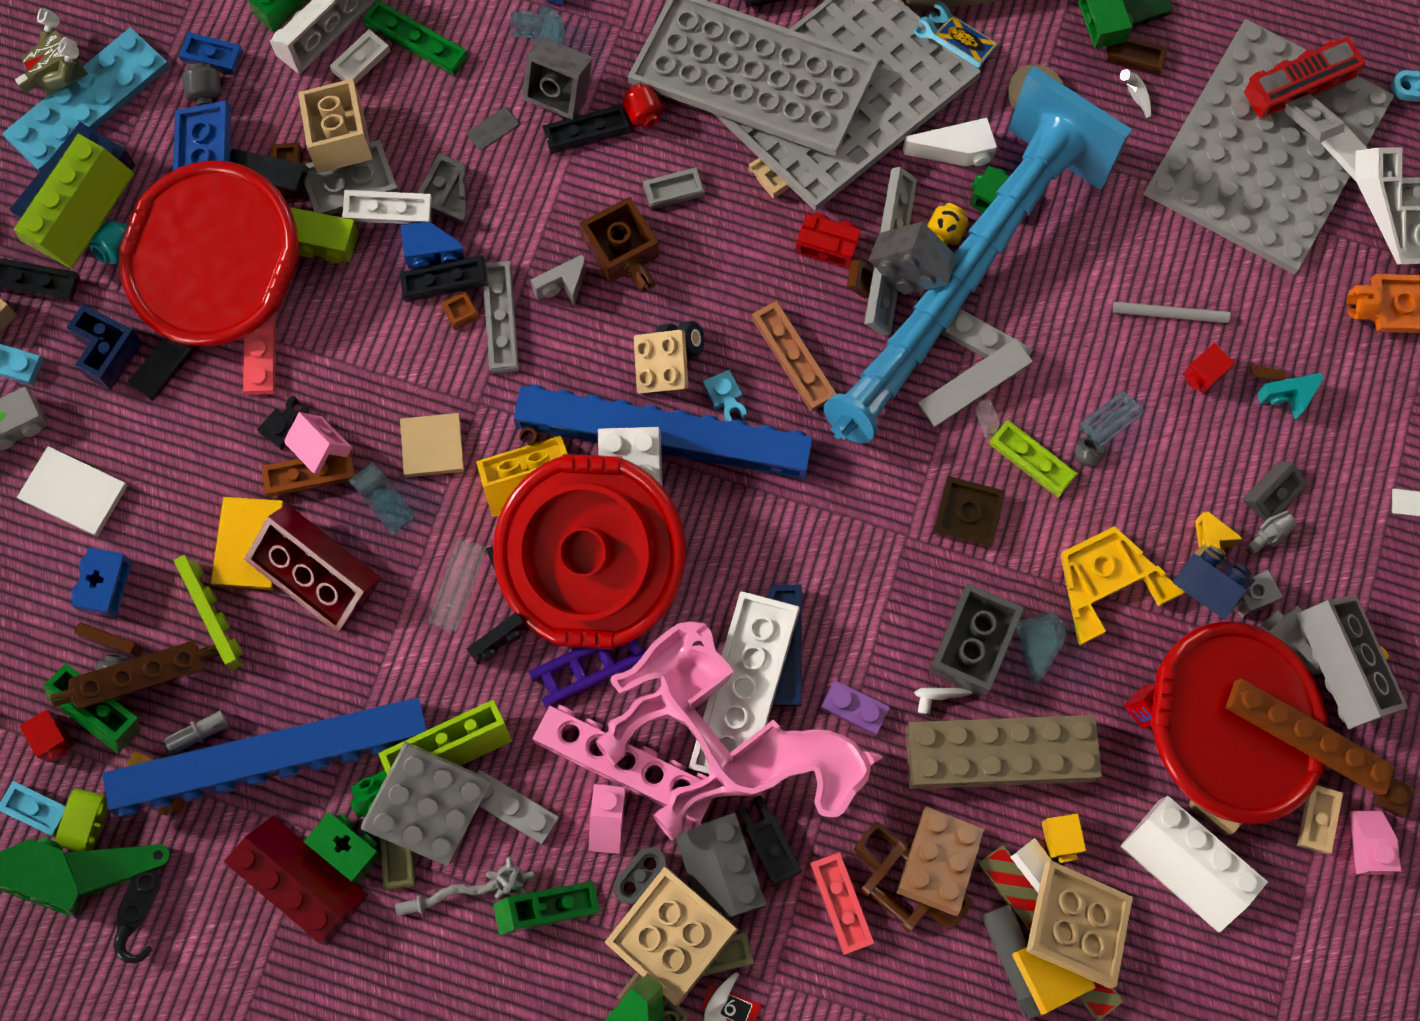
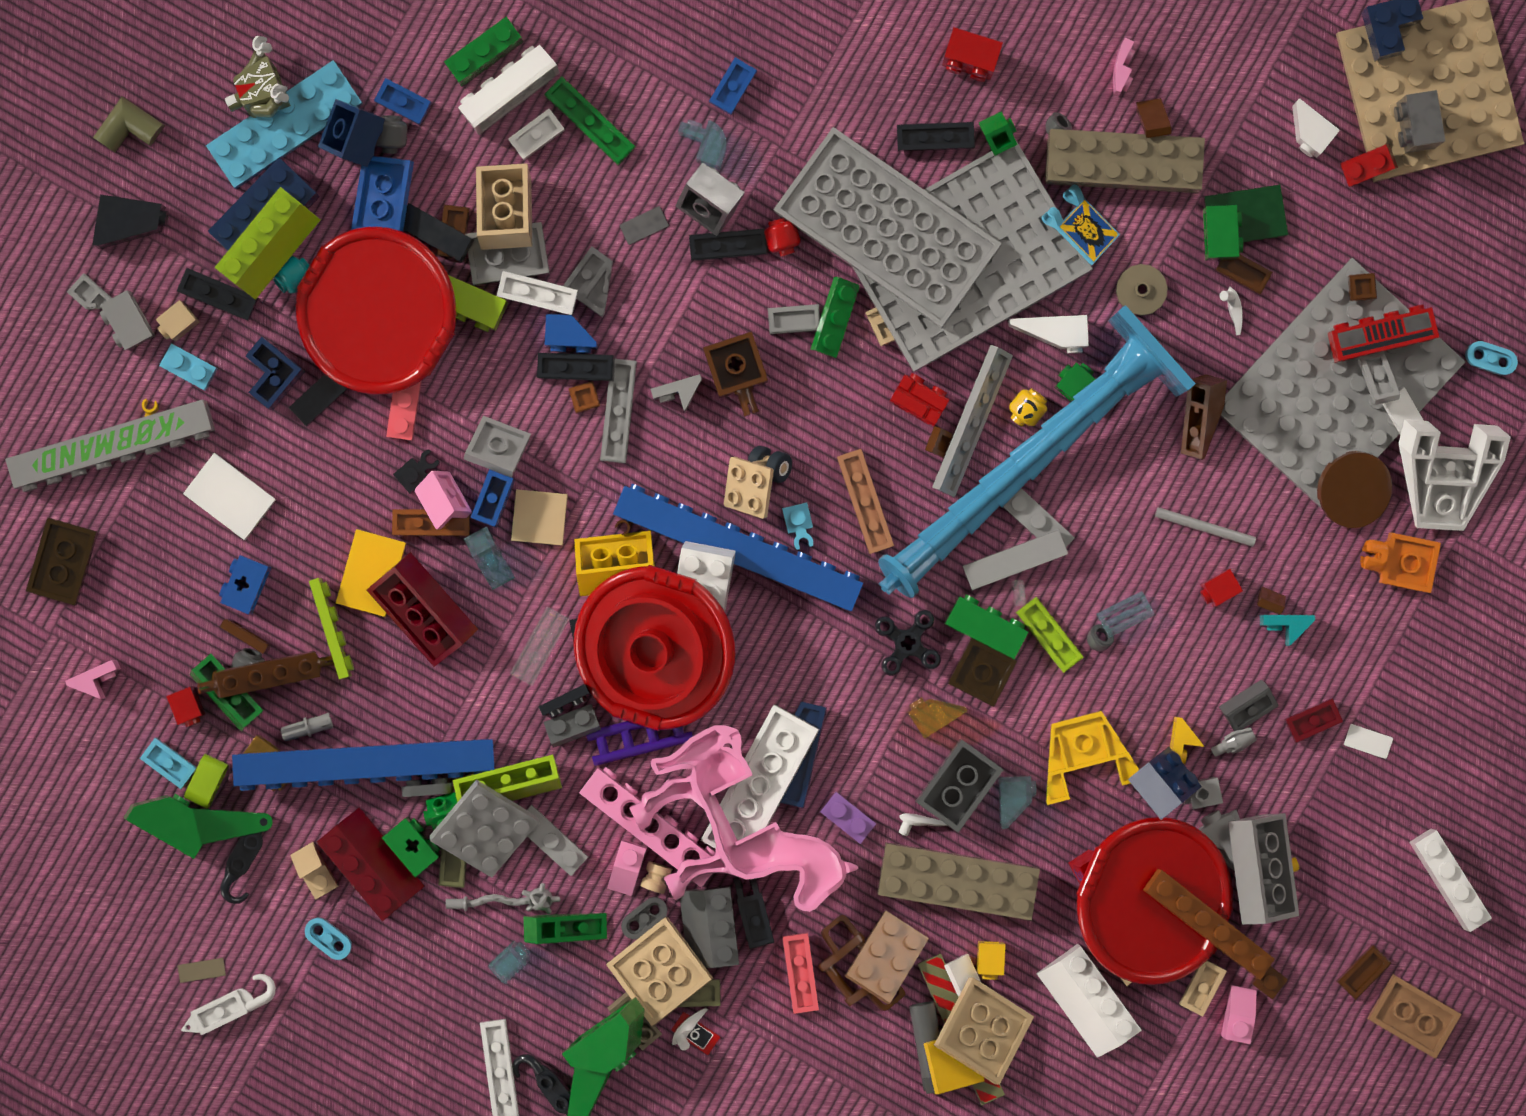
camera: 15 degrees right, 15 degrees up
(157, 82) = (351, 133): none -> dark blue brick
(229, 904) = (313, 870): none -> tan slope
(258, 984) = (329, 937): none -> medium azure plate
(339, 777) = (416, 788): none -> dark grey plate
(369, 374) = (497, 446): none -> light grey plate
(374, 429) = (493, 498): none -> blue brick
(485, 960) = (510, 961): none -> clear light blue brick
(511, 667) = (572, 725): none -> dark grey plate
(644, 824) = (655, 878): none -> tan wheel
(717, 176) = (835, 317): none -> green plate
(882, 486) = (917, 649): none -> black gear
(913, 258) = (985, 442): flat silver brick -> none
(925, 569) = (933, 715): none -> clear yellow slope
(960, 458) = (987, 626): none -> green brick
(1136, 195) = (1202, 413): none -> reddish brown slope
(1266, 40) = (1362, 287): none -> reddish brown tile
(1321, 238) = (1354, 489): none -> reddish brown tile
(1352, 490) = (1313, 720): none -> dark red plate

